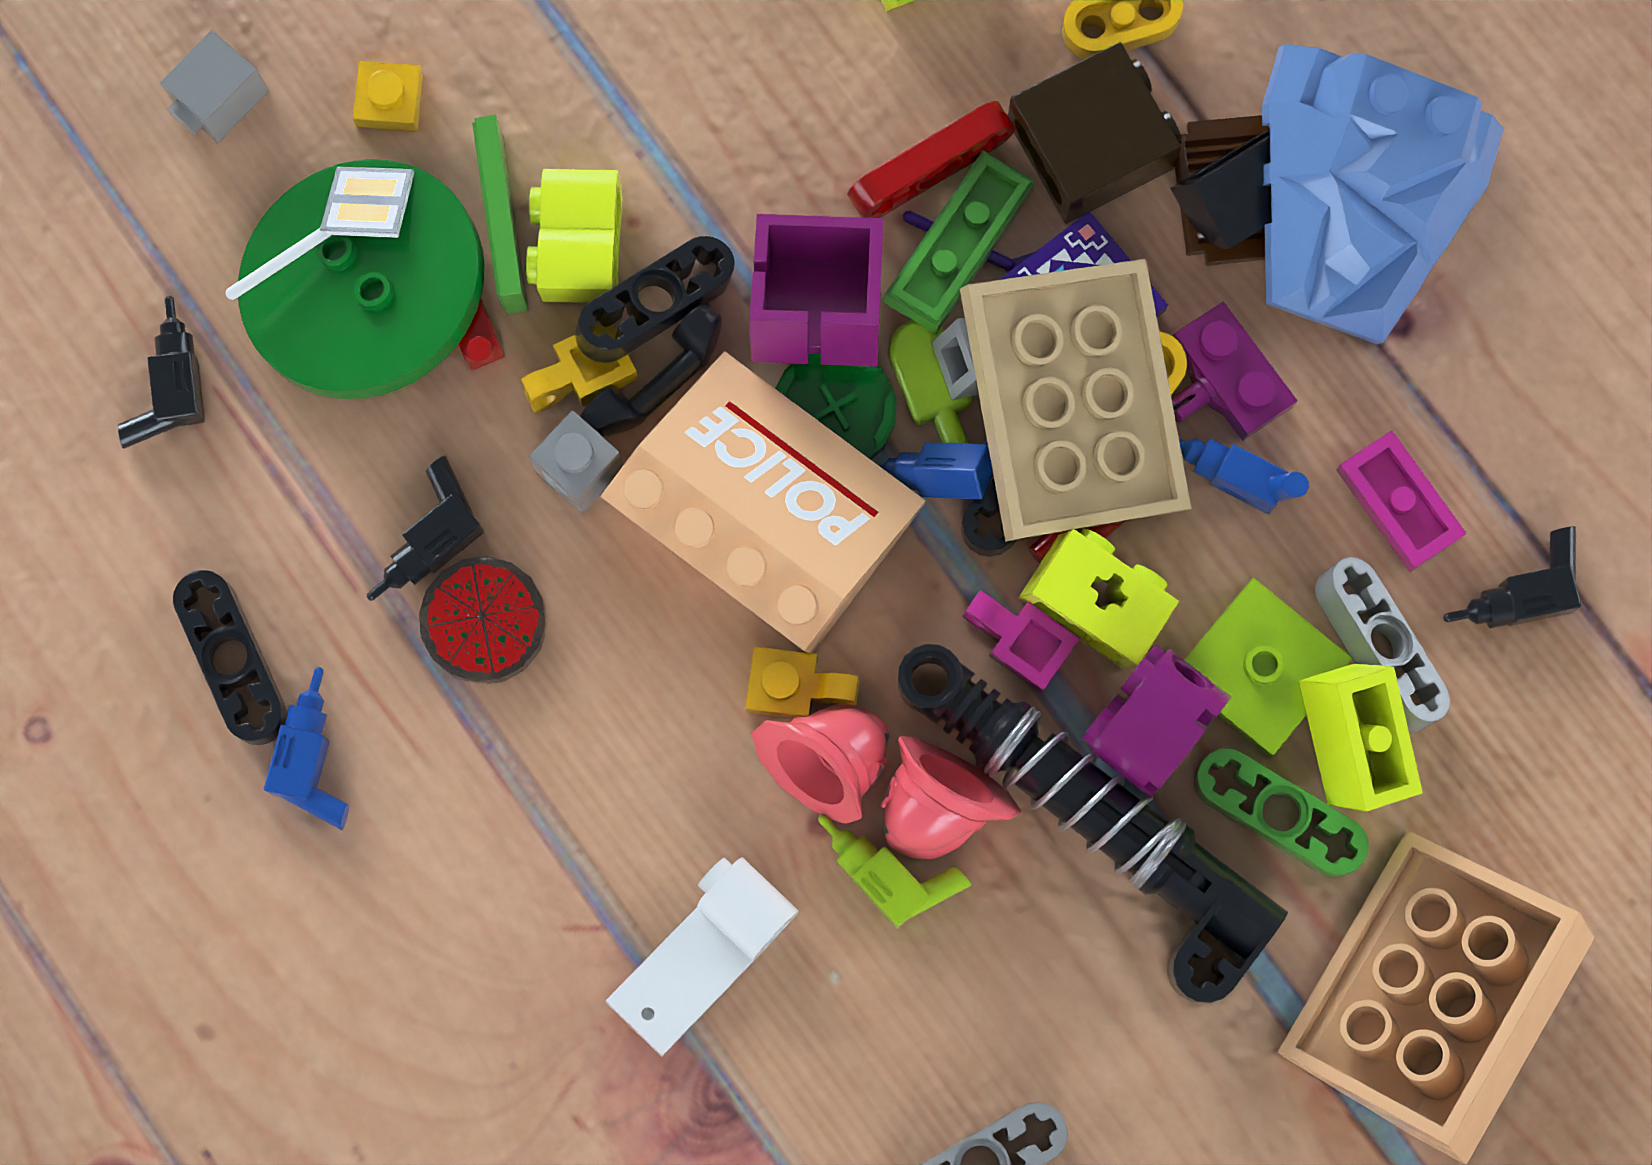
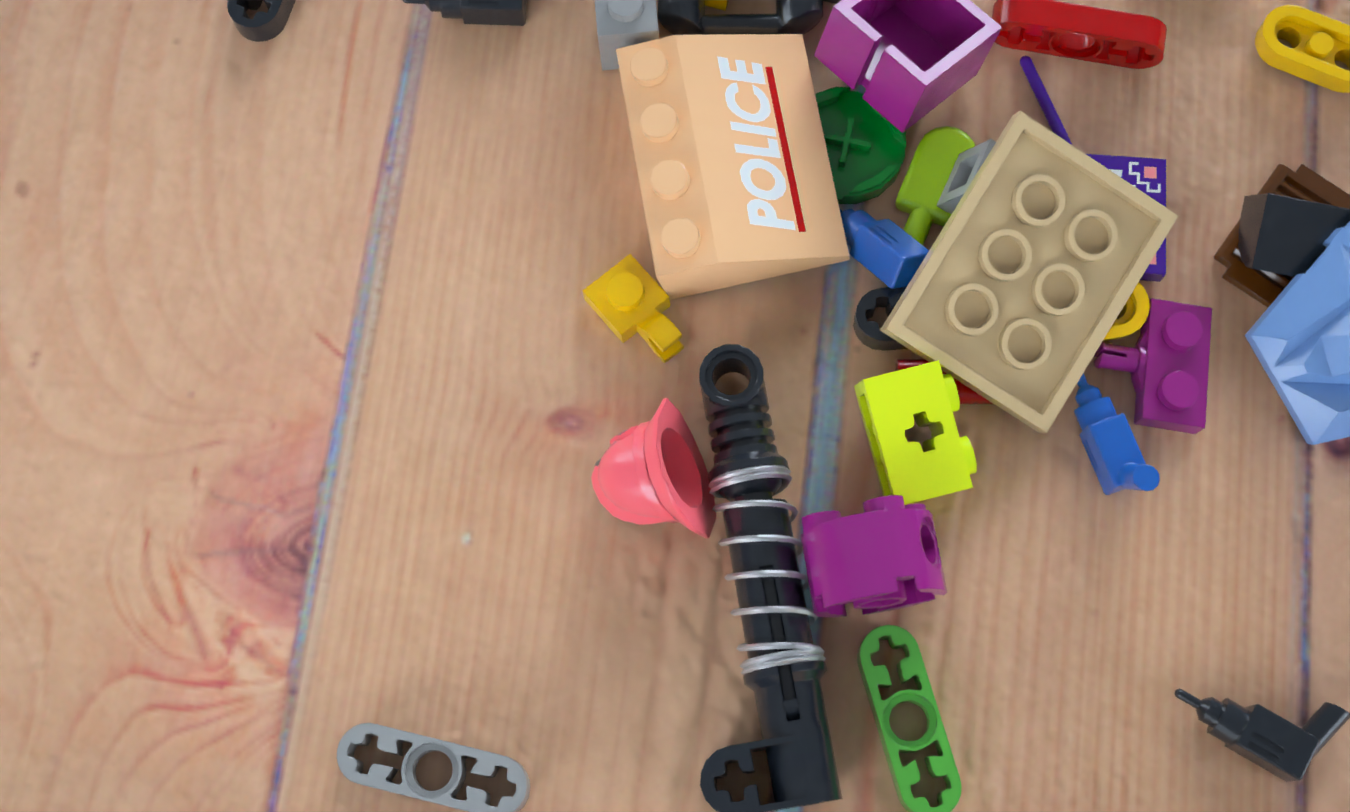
camera: 45 degrees right, 5 degrees down
(301, 756) = (256, 63): blue piece -> none
(483, 620) = (464, 78): tile -> none
(703, 954) = (388, 436): white door -> none
(826, 757) = (606, 371): coral piece -> none
(887, 880) = (566, 501): lime piece -> none
(959, 242) = (1056, 98): bright green tile -> none
(1028, 643) = (831, 423): dark pink plate -> none
(1094, 132) = (1223, 107): dark brown piece -> none
(1258, 658) = (999, 602): lime plate -> none
(1361, 736) = (1023, 717): neon yellow brick -> none
(1373, 597) = (1084, 681): light grey beam -> none
(1401, 501) = (1221, 572): dark pink plate -> none

